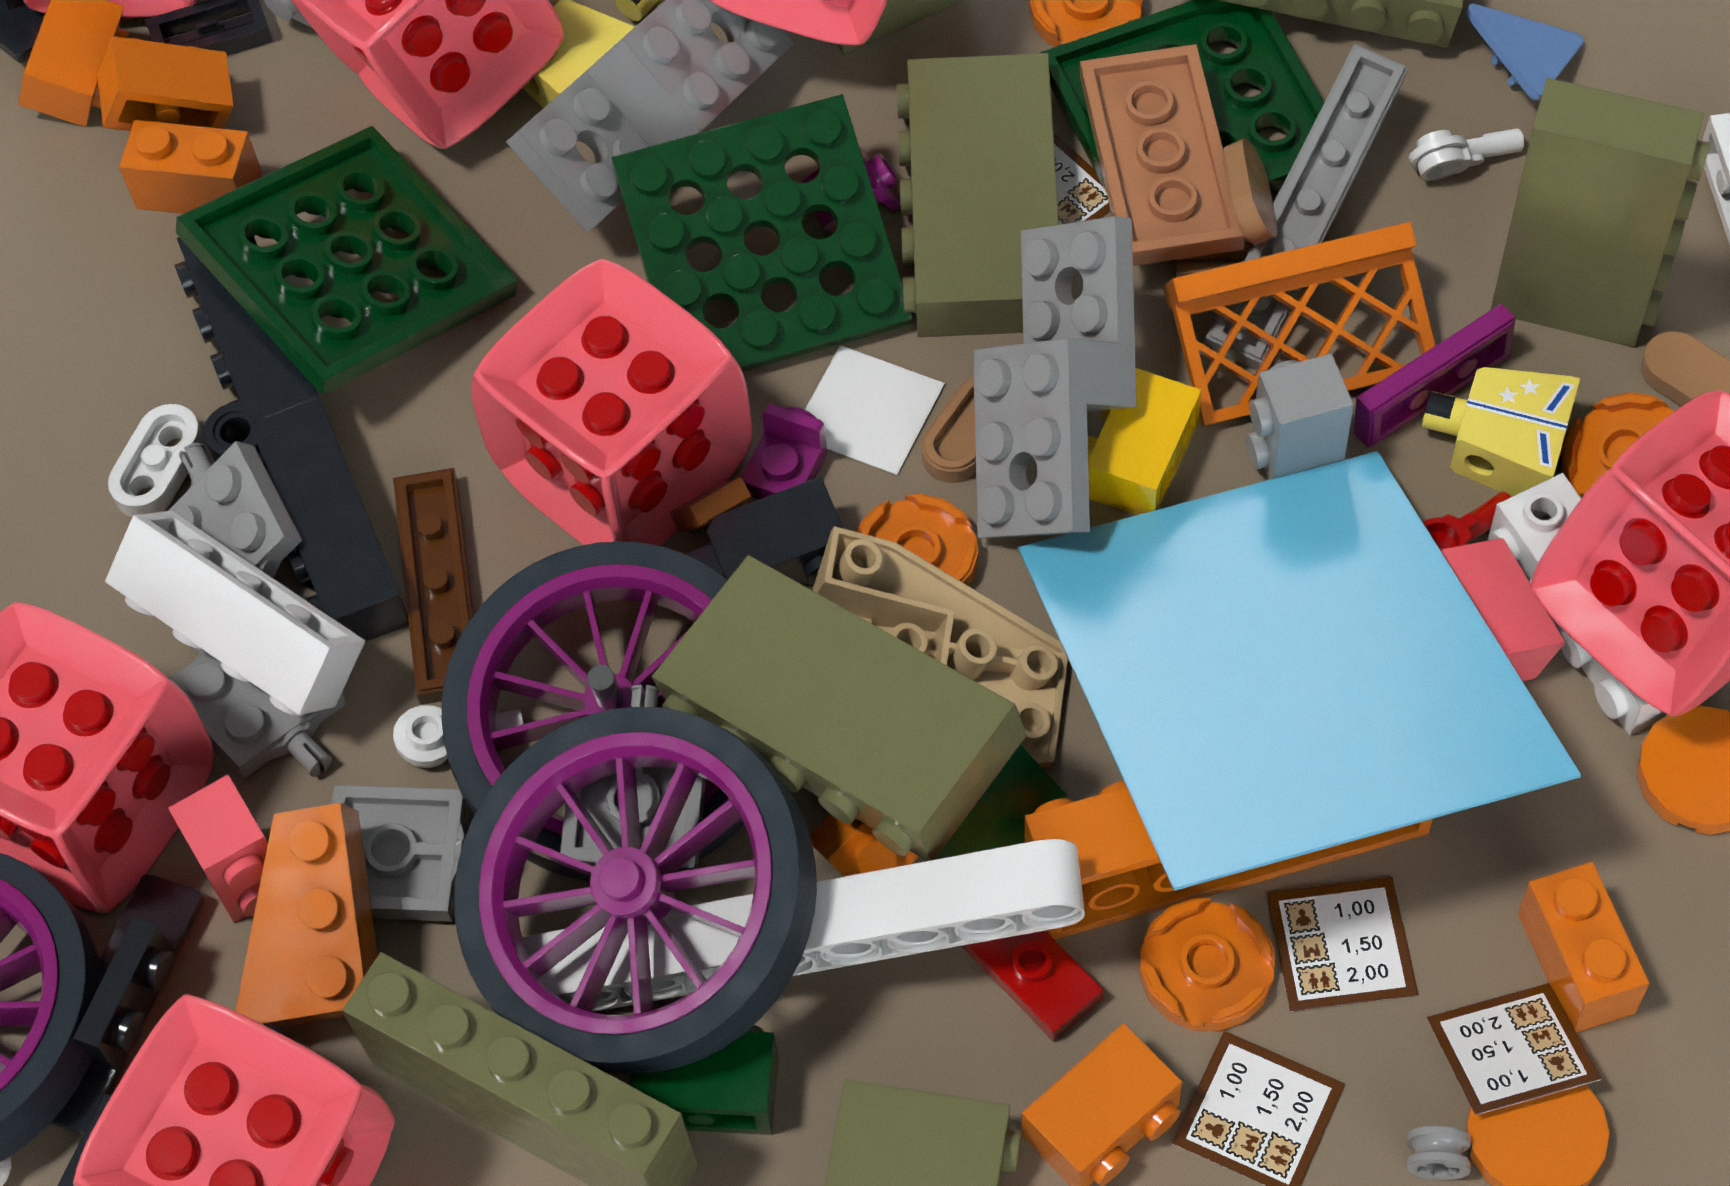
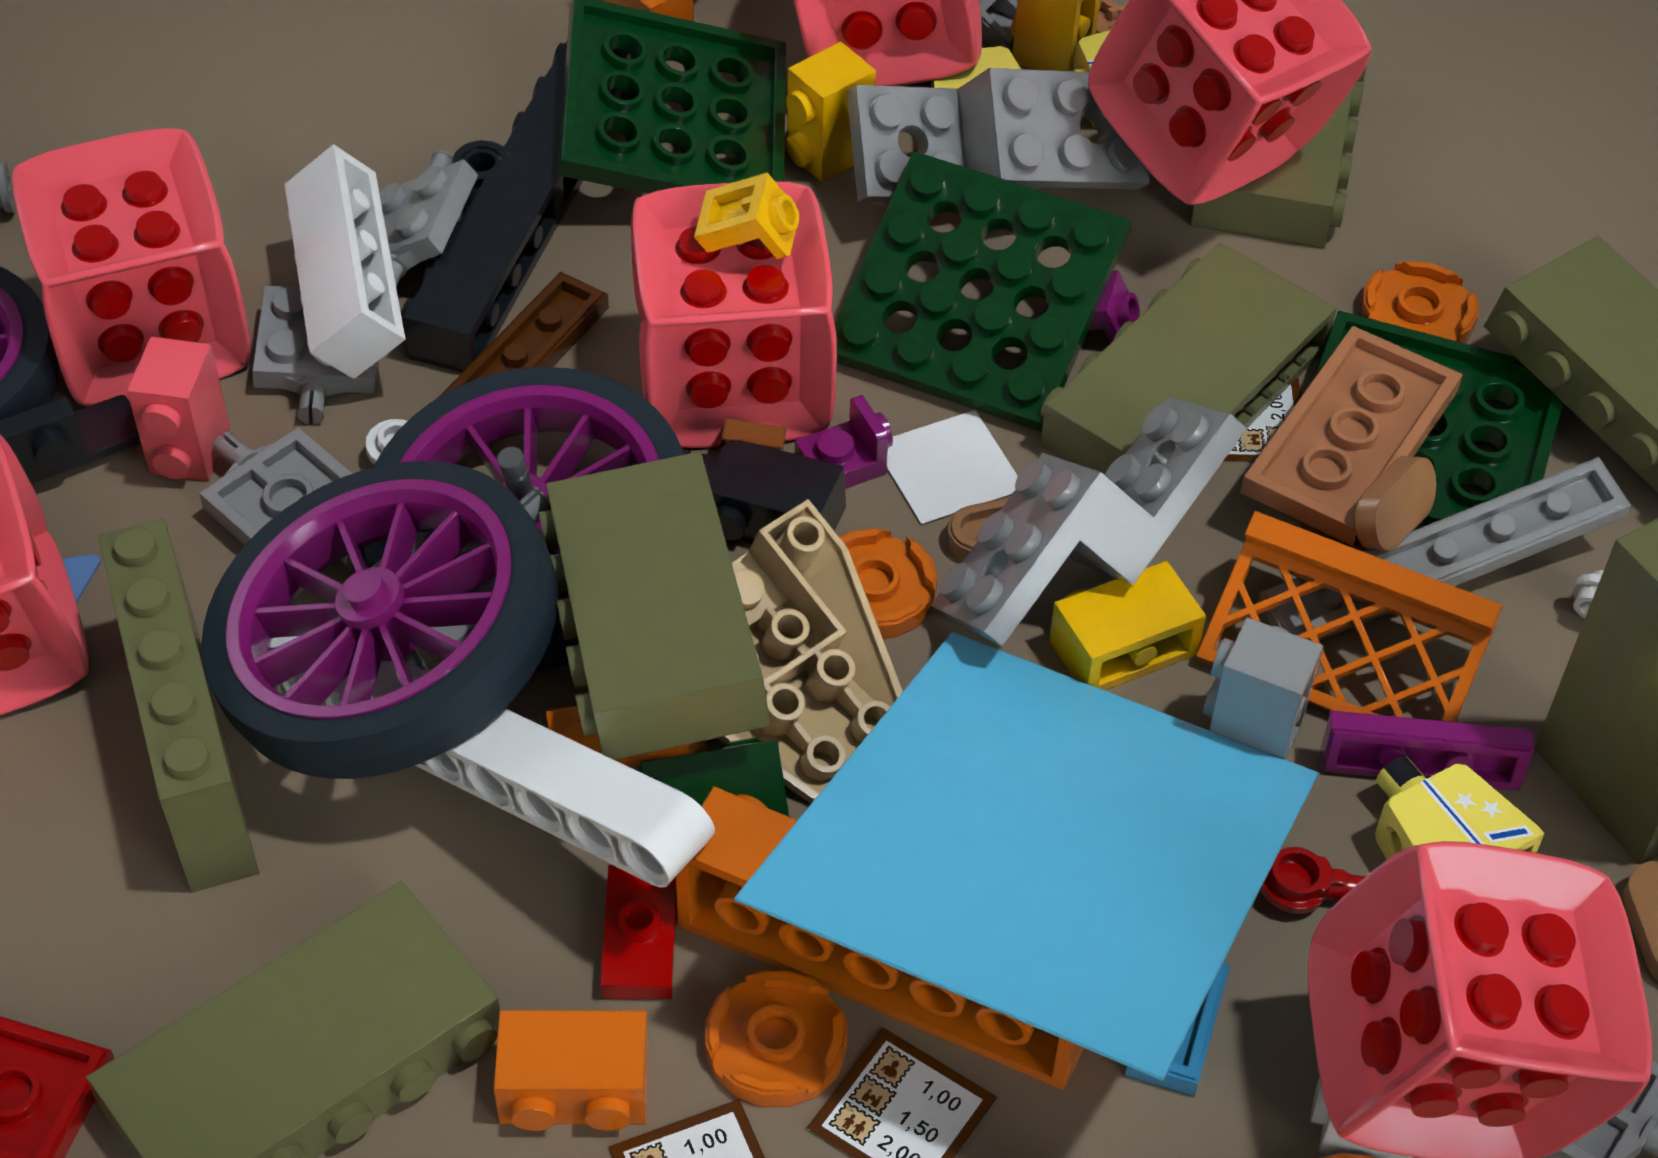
camera: 35 degrees right, 10 degrees down
(150, 463) = (409, 152): white plate -> none
(310, 920) = (187, 470): orange wedge -> none
(479, 167) = (819, 109): none -> yellow brick
(594, 325) = (748, 212): none -> yellow bracket
(725, 1090) = (323, 822): dark green brick -> none
(1507, 604) = (1267, 965): coral brick -> none

